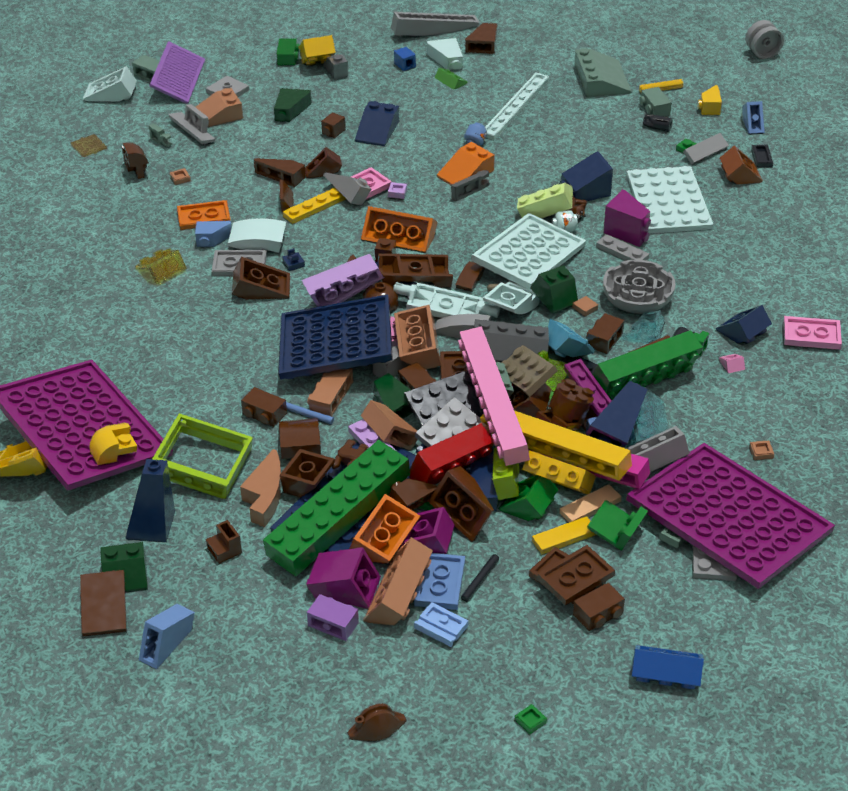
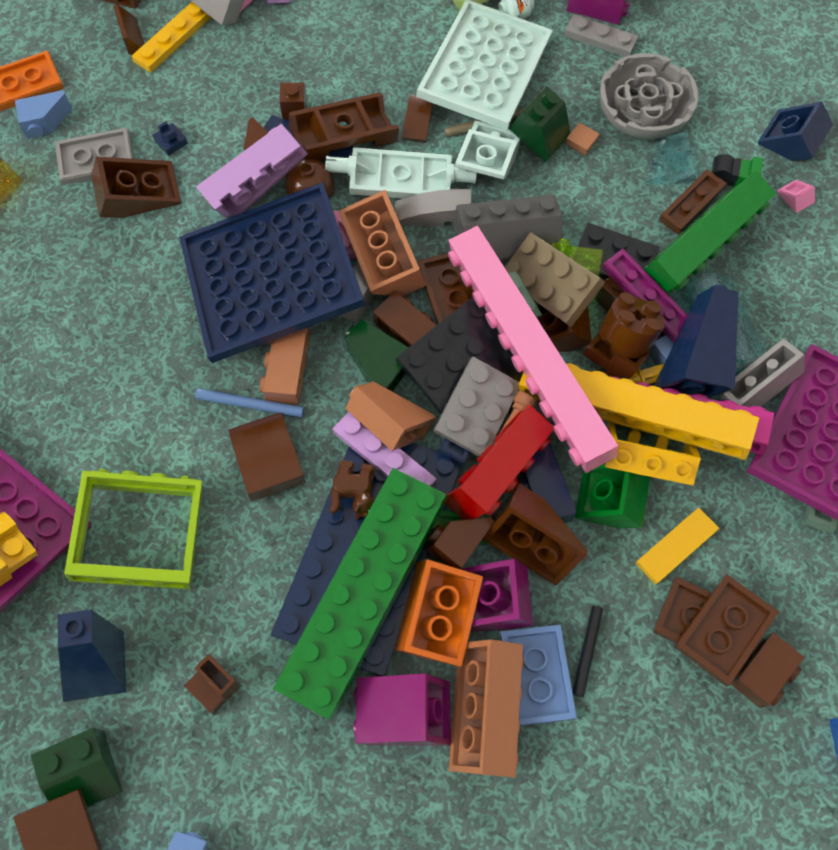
camera: 15 degrees left, 25 degrees up
(257, 234) = (107, 104): light aqua slope -> none
(263, 489) = (243, 565): nougat slope -> none
(264, 407) = (200, 413): reddish brown brick -> none
(304, 472) = (297, 530): reddish brown slope -> none
(332, 617) = (408, 786): medium lavender brick -> none
(407, 229) = (299, 58): orange slope -> none
(441, 624) = (563, 757): light blue plate -> none
(505, 478) = (581, 485): lime brick -> none
(566, 341) = (583, 210): medium azure wedge -> none
(590, 503) = (683, 497): light nougat tile -> none
(605, 333) = (625, 183): reddish brown brick -> none
(615, 524) = (749, 518): green bracket -> none

